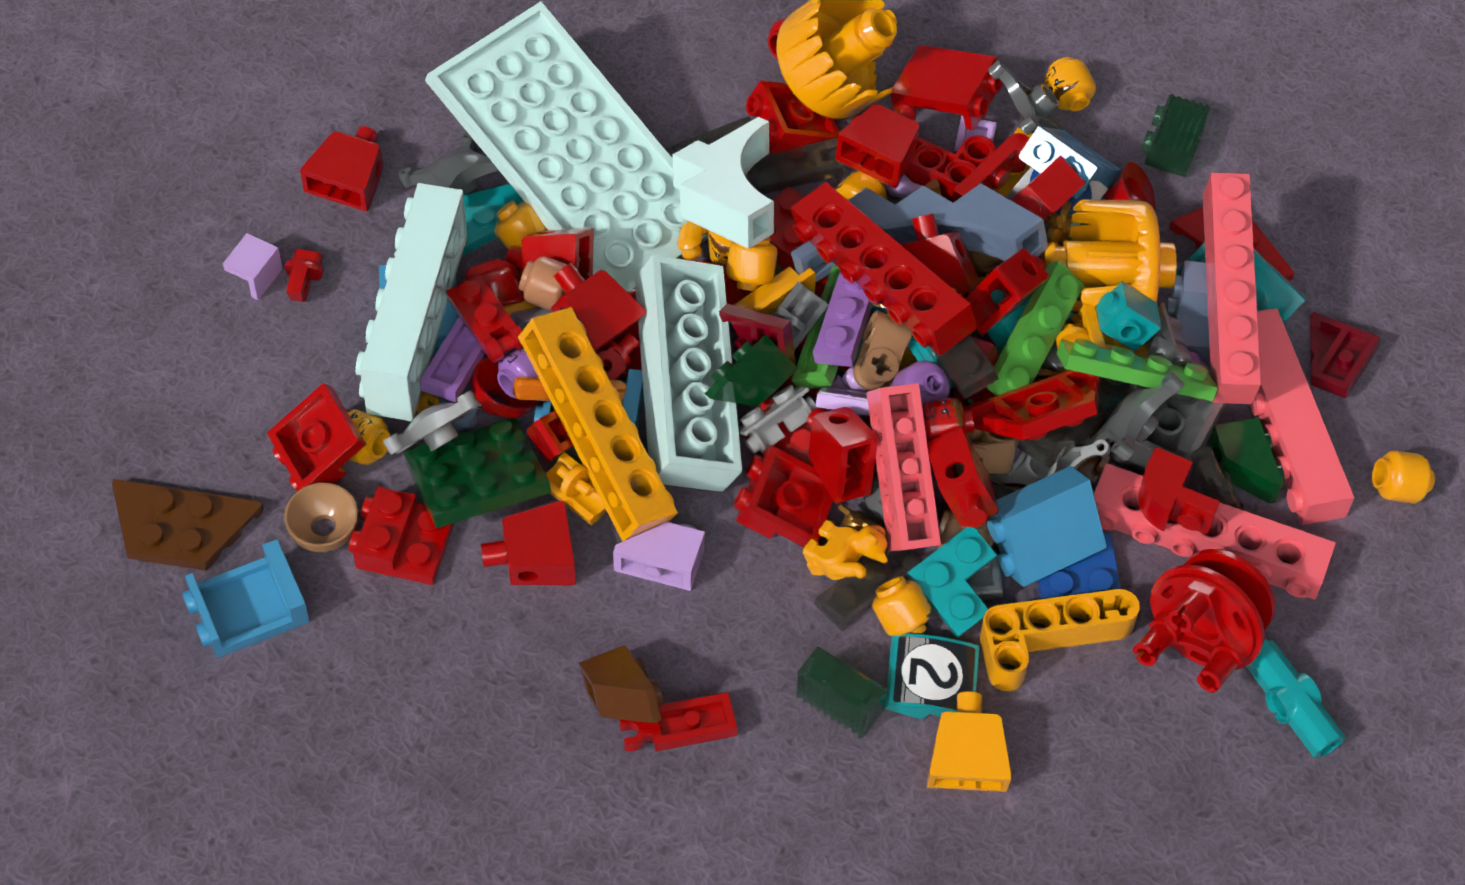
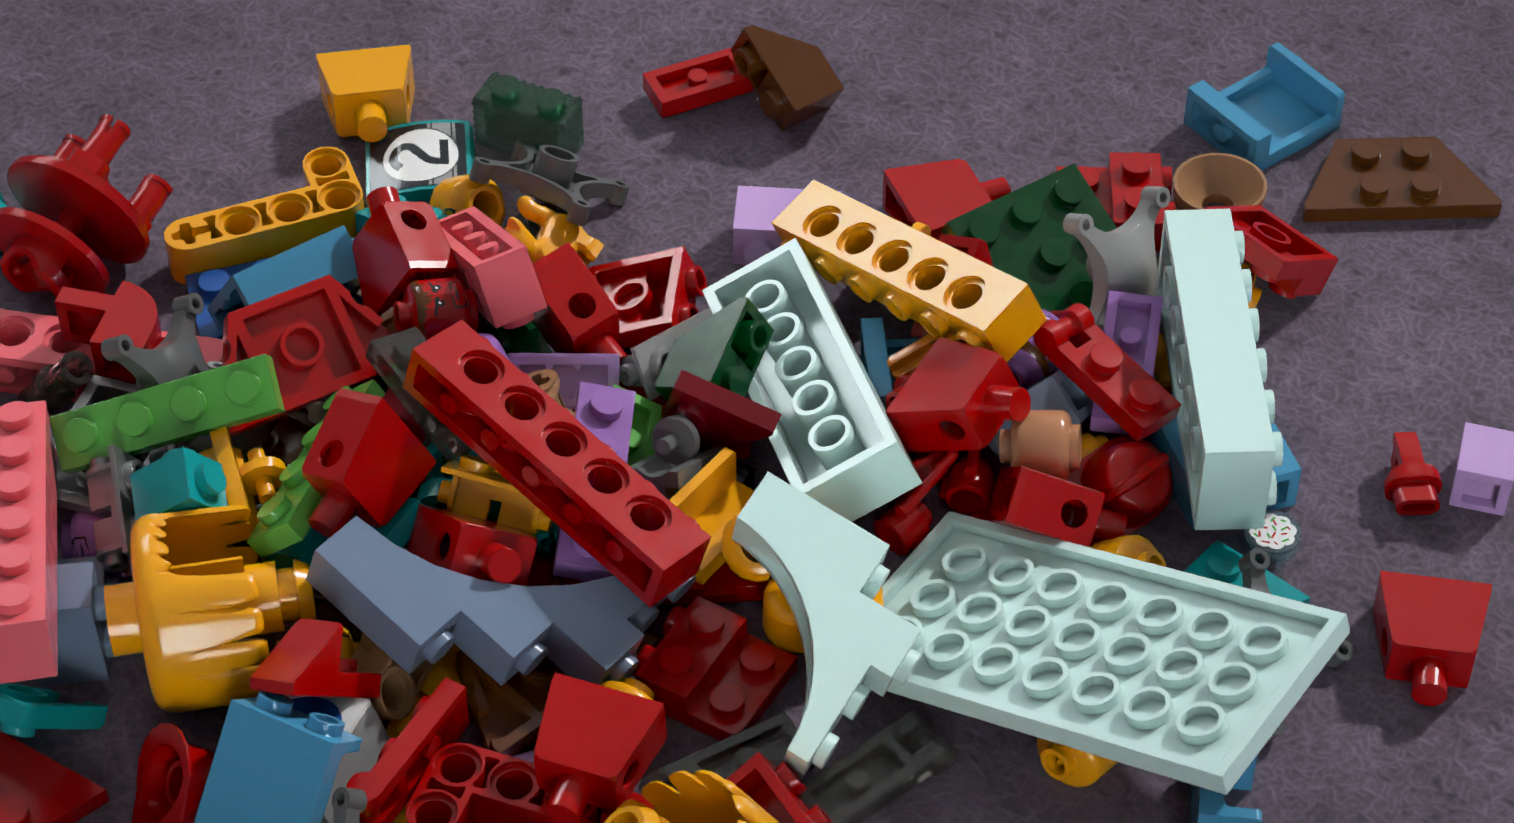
camera: 170 degrees right, 10 degrees down
(834, 605) = (550, 178): none -> dark grey piece

